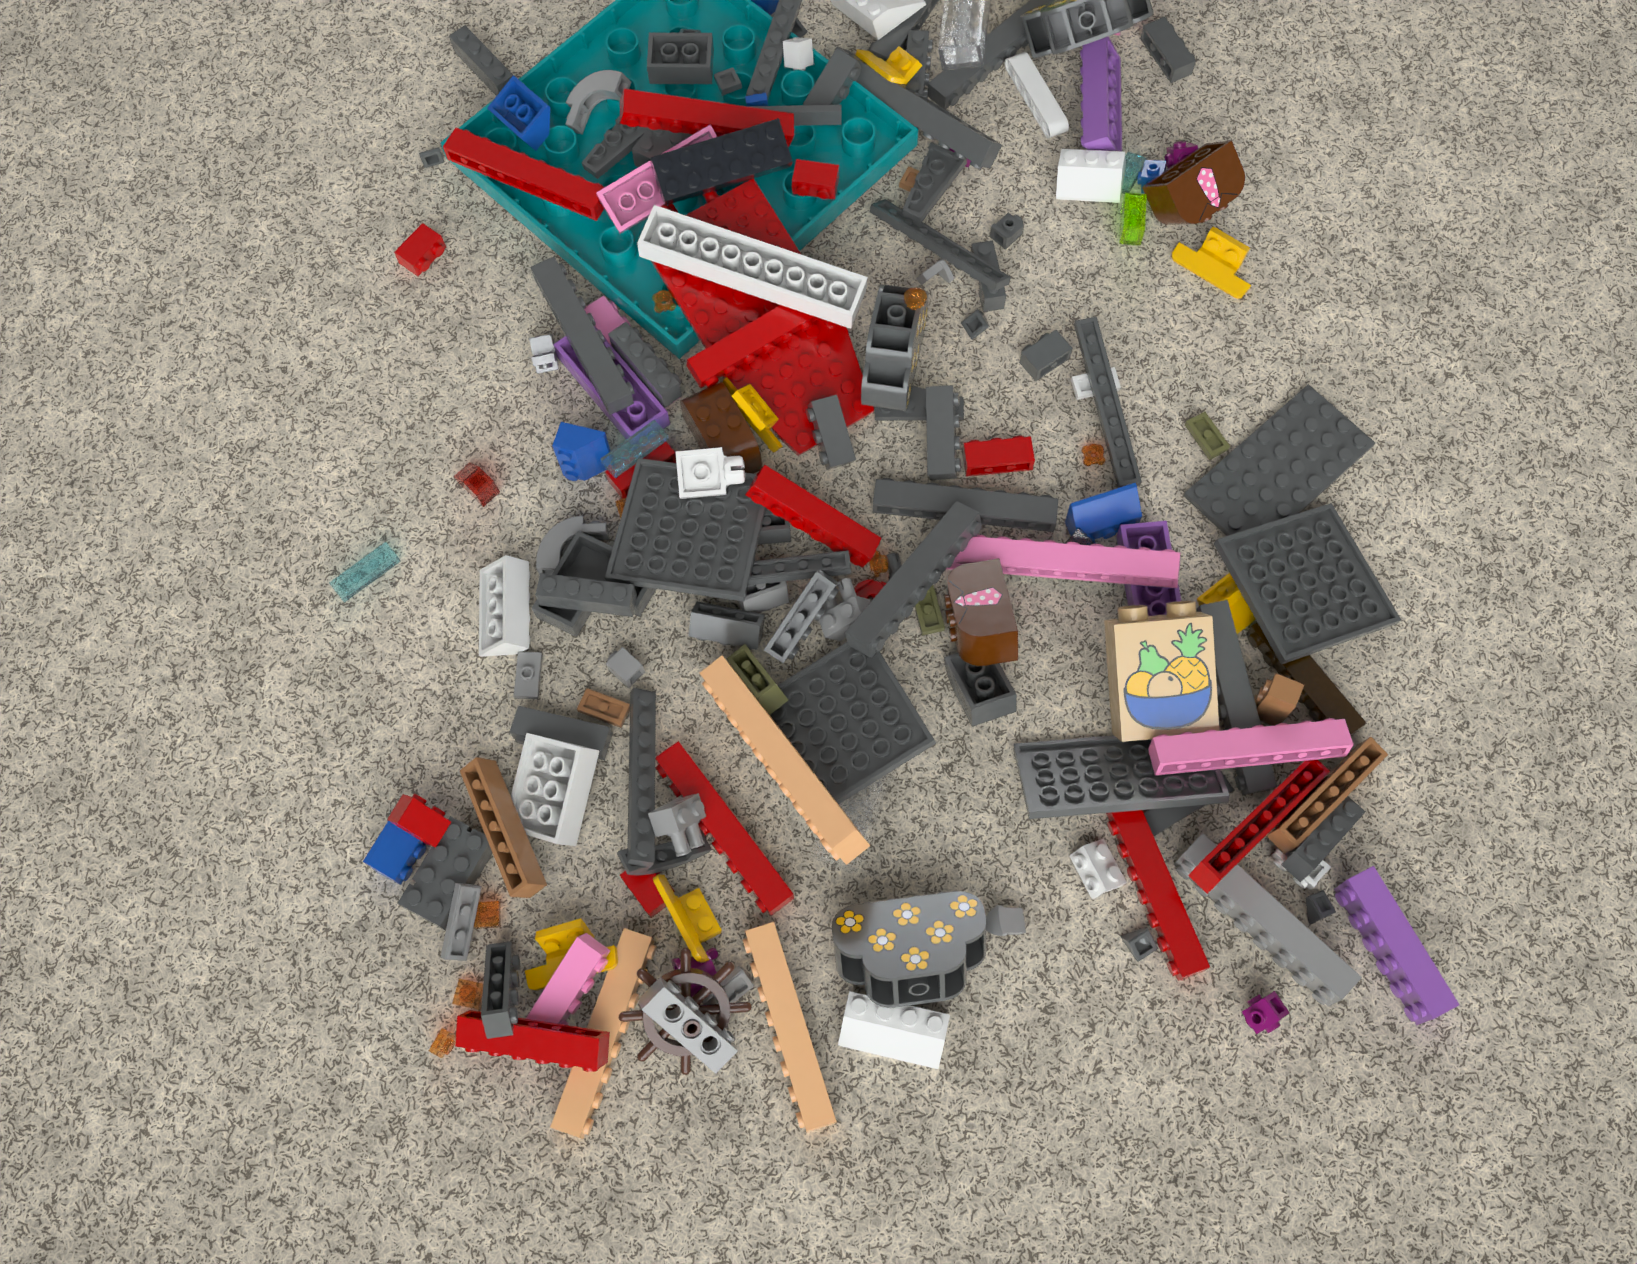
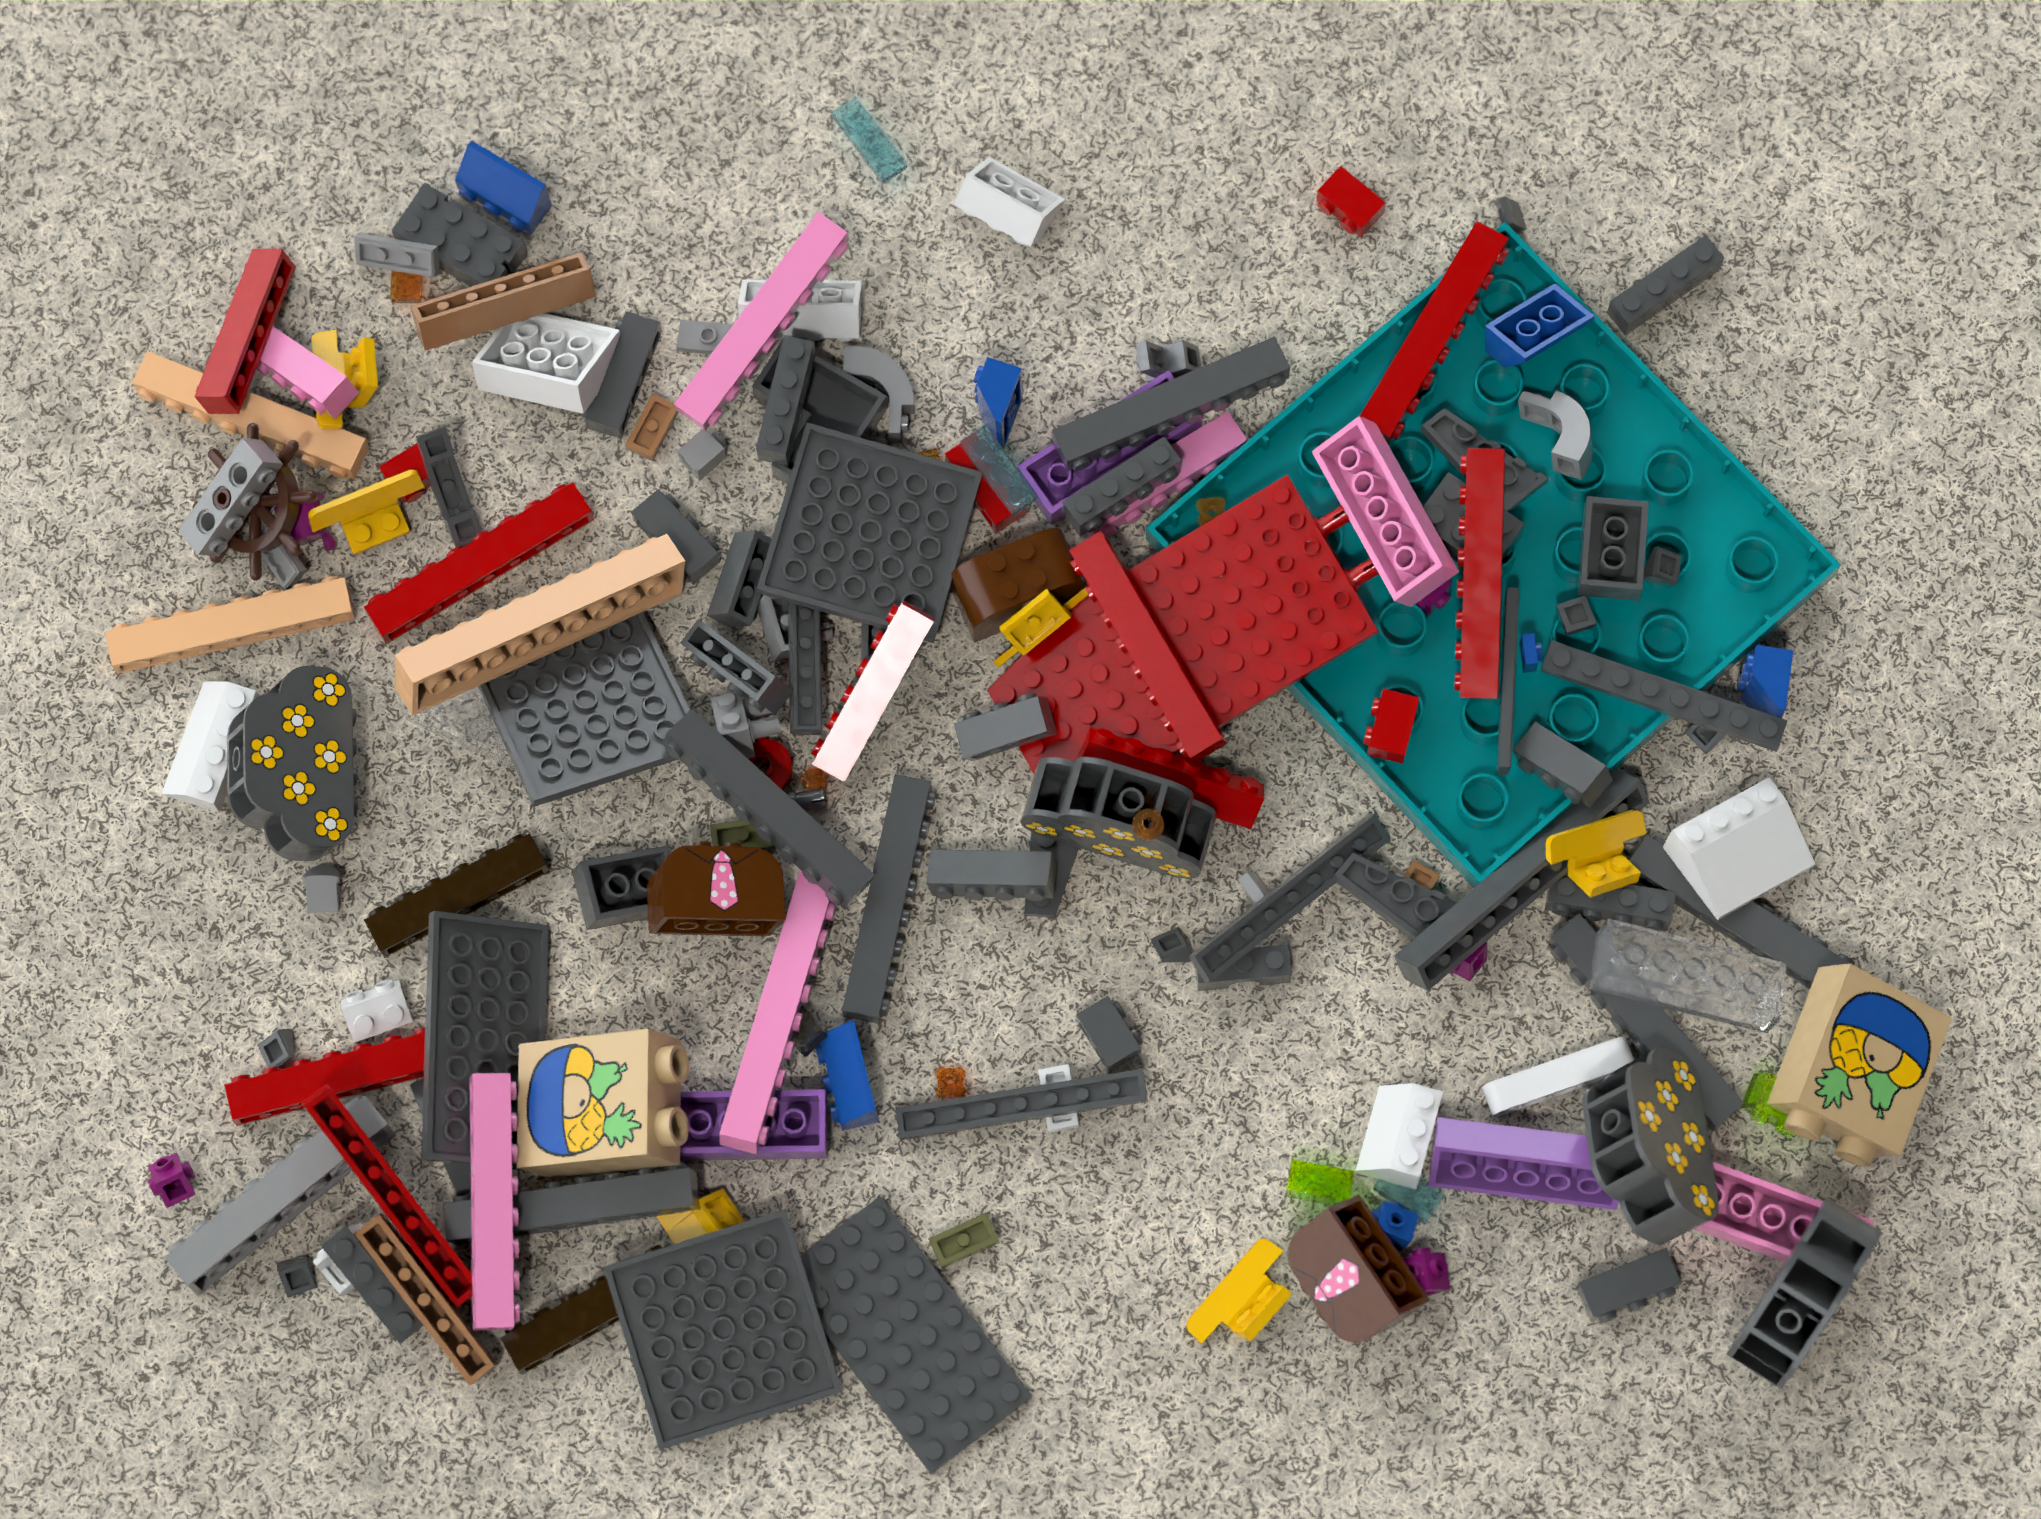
camera: 95 degrees right, 5 degrees up
(418, 469) = (1008, 201): none -> white slope
(419, 820) = (515, 203): red brick -> none
(443, 1043) = (259, 236): clear orange plate -> none
(468, 994) = (316, 266): clear orange plate -> none
(477, 483) = (979, 273): clear red slope -> none
(500, 990) = (303, 294): dark grey brick -> none
(521, 618) = (762, 321): none -> bright pink brick
(641, 777) = (547, 463): dark grey plate -> none
(678, 818) = (485, 498): light grey brick -> none
(686, 686) = (661, 516): none -> dark grey brick
(707, 472) = (938, 553): white plate -> none
(721, 162) = (1384, 579): black brick -> none
(752, 266) = (1219, 615): white brick -> none
(757, 679) = (658, 607): olive brick -> none
(798, 53) = (1625, 720): white brick -> none
(851, 346) = (1231, 796): none -> red brick
(998, 456) = (958, 950): red brick -> none
(999, 815) = (459, 893): none -> dark brown brick
(1007, 230) = (1321, 1018): dark grey brick -> none
(1277, 699) = (554, 1250): medium nougat brick -> none
(1395, 947) = (228, 1348): medium lavender brick -> none

